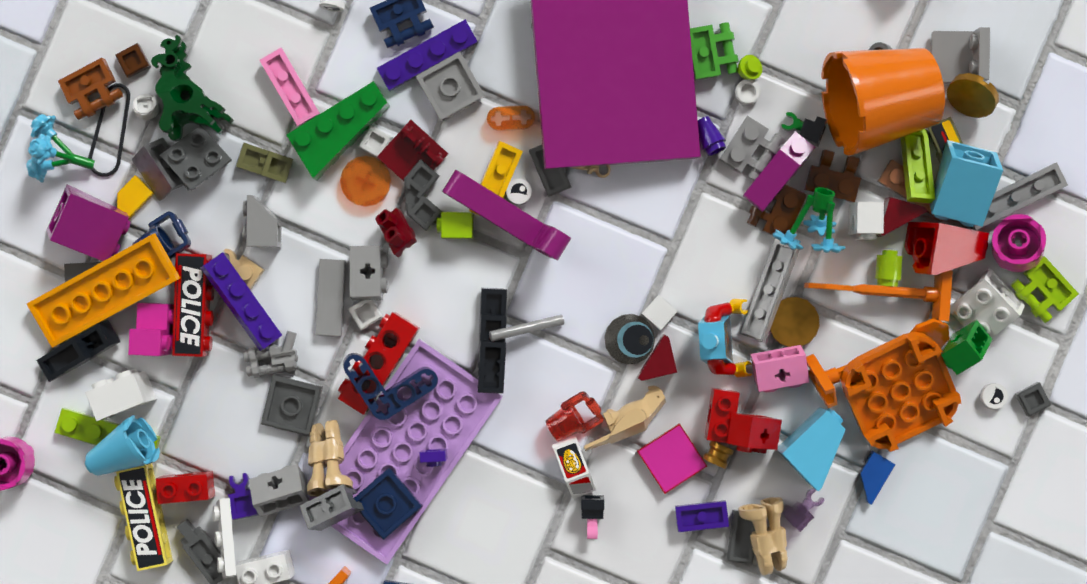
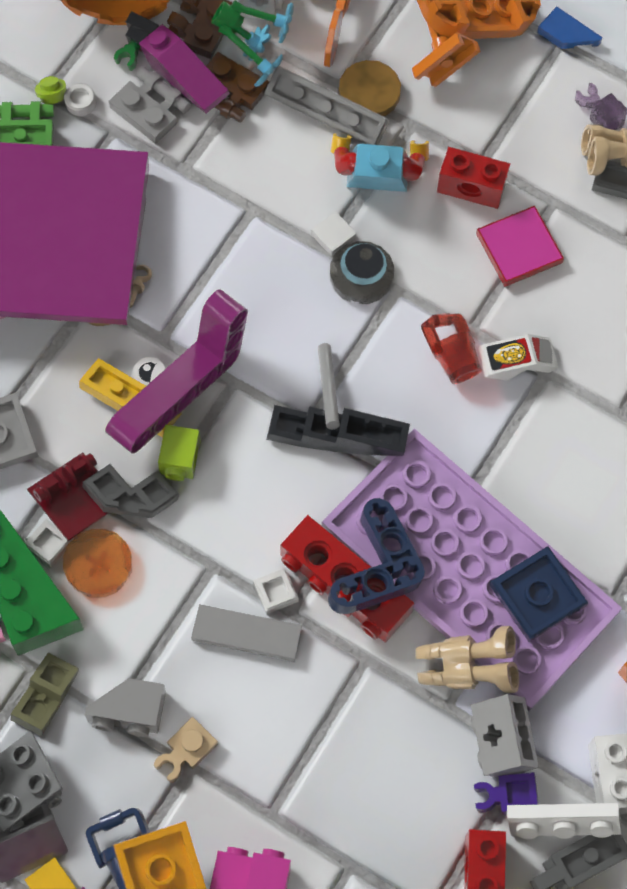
camera: 85 degrees left, 20 degrees down
(192, 307) = (226, 820): brick -> none
(241, 301) = (231, 748): dark purple plate -> none
(282, 358) = (319, 710): light grey piece -> none
(291, 405) = (387, 708): dark grey tile -> none
(330, 508) = (536, 660): hinge -> none
(360, 260) = (235, 585): light grey brick -> none
(396, 230) = (172, 526): dark red hips -> none
(433, 457) = (483, 518): dark purple plate -> none
(509, 111) = (60, 370): clear orange beam -> none
(554, 179) = (140, 332): dark grey tile -> none
(592, 509) = (573, 344): black piece -> none
(631, 418) = (462, 281): tan animal -> none
(660, 361) = (395, 236): dark red slope -> none
(702, 516) = (596, 220): dark purple plate -> none
(710, 137) = (129, 139): dark purple cone -> none
(718, 454) = (521, 190): pearl gold wheel -> none
(754, 432) = (499, 139): red brick -> none
(791, 362) = (424, 106): bright pink brick -> none
(814, 446) = (526, 78): medium azure slope -> none

